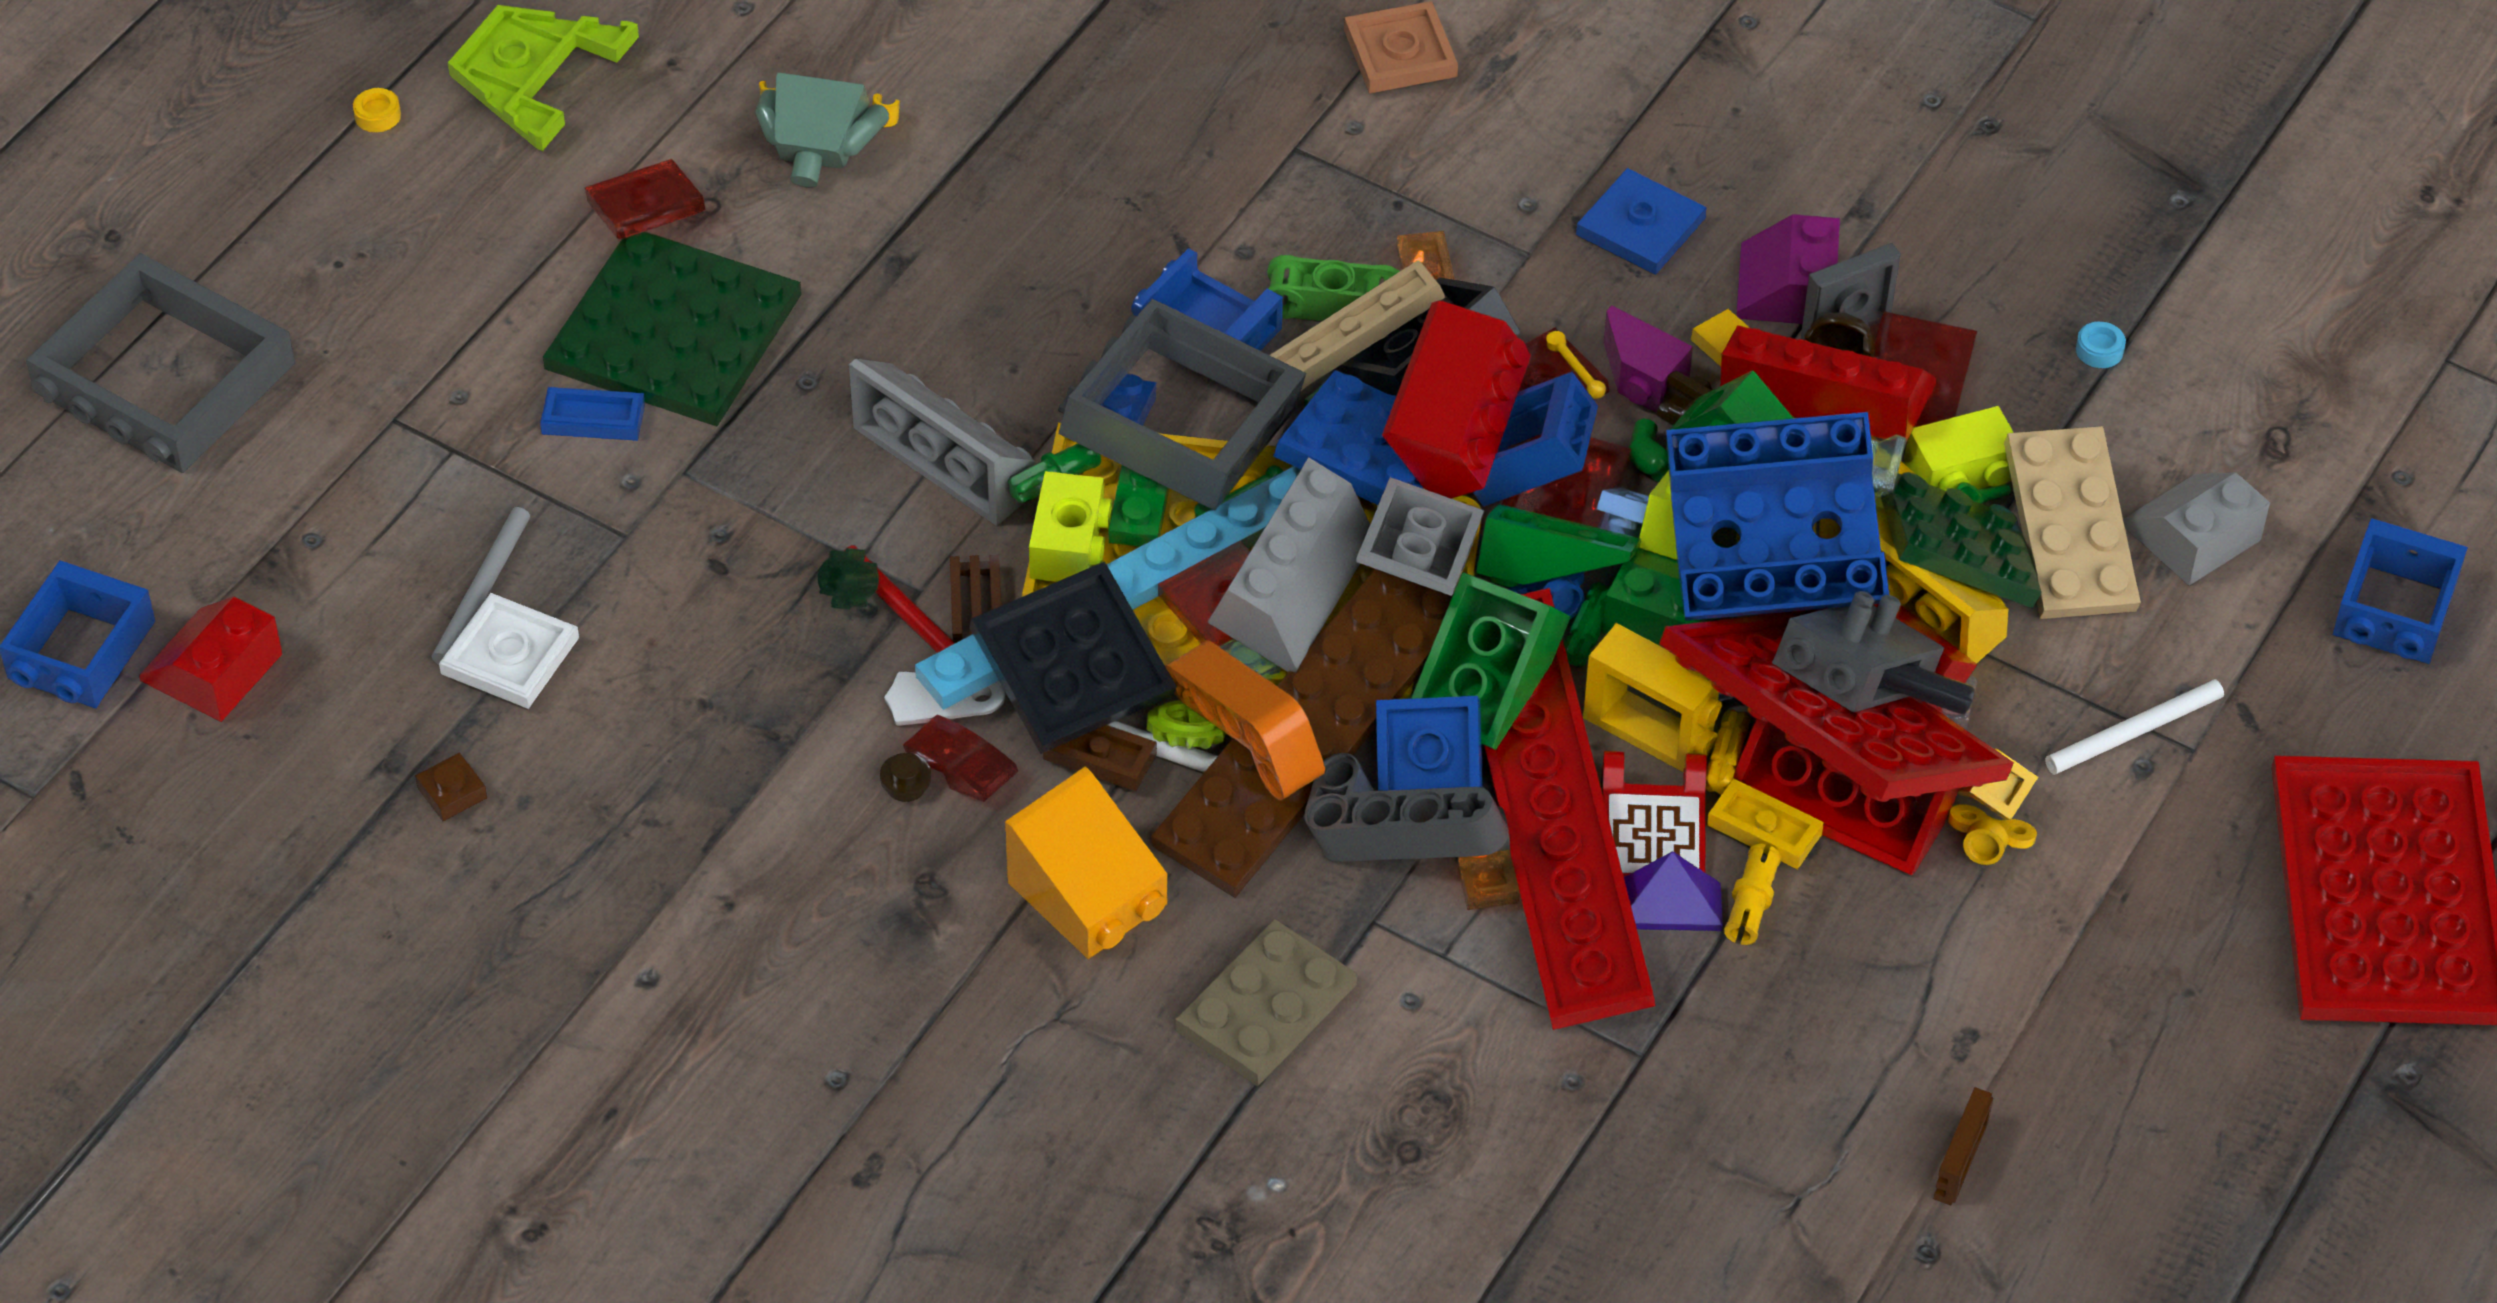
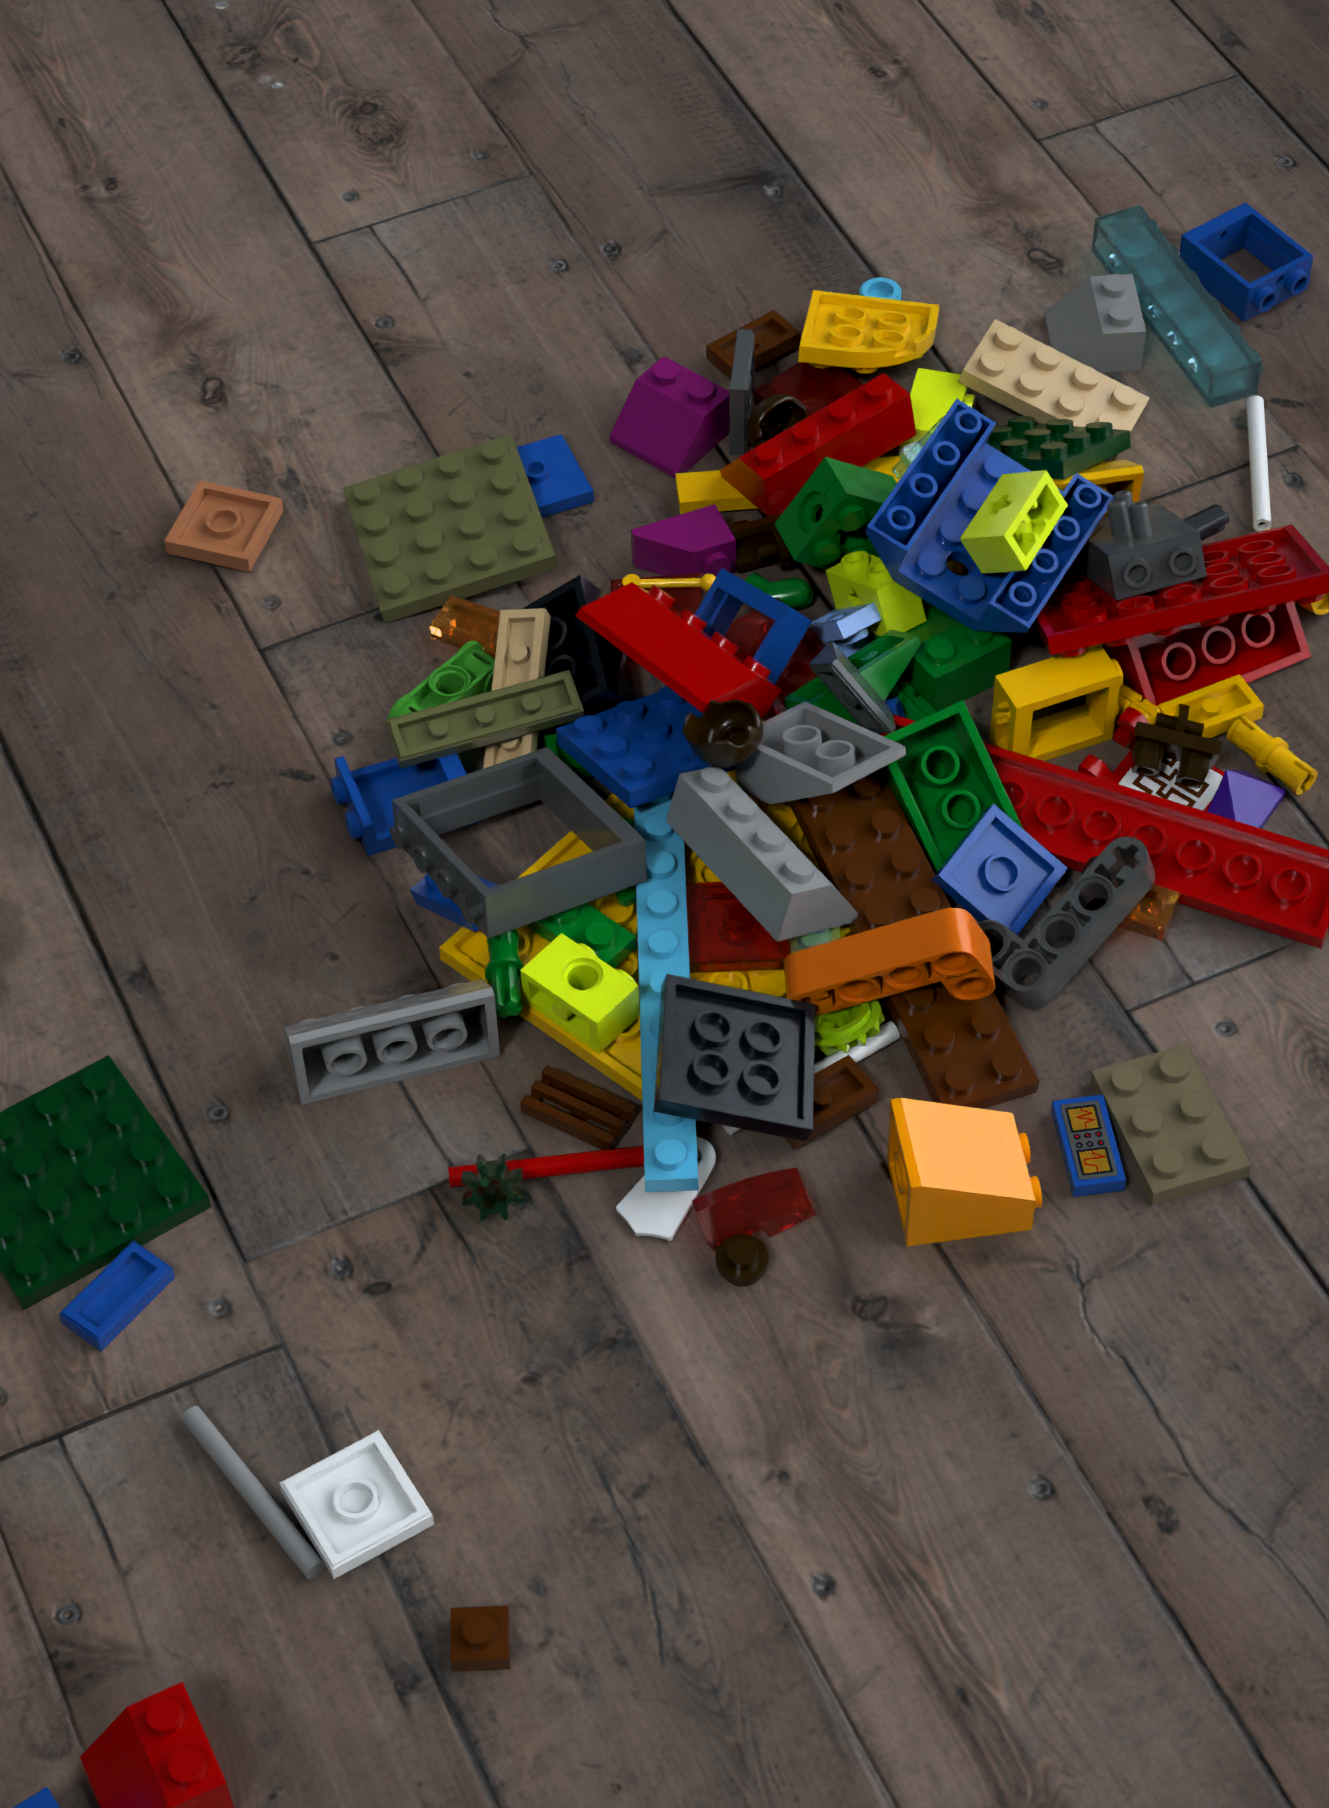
camera: 55 degrees left, 0 degrees up
(1197, 955) = (1088, 1145): none -> tile
(1300, 316) = (484, 719): none -> olive tile
(1368, 462) = (724, 733): none -> dark brown hair
(1524, 190) = (449, 528): none -> olive plate
(1528, 537) = (852, 690): none -> dark grey slope
(1665, 789) = (1177, 740): none -> dark brown hips
(1776, 534) = (1014, 522): none -> neon yellow brick
(1943, 282) = (772, 339): none -> reddish brown plate
(2023, 349) = (865, 331): none -> yellow plate
(2286, 565) = (1178, 307): none -> clear light blue brick

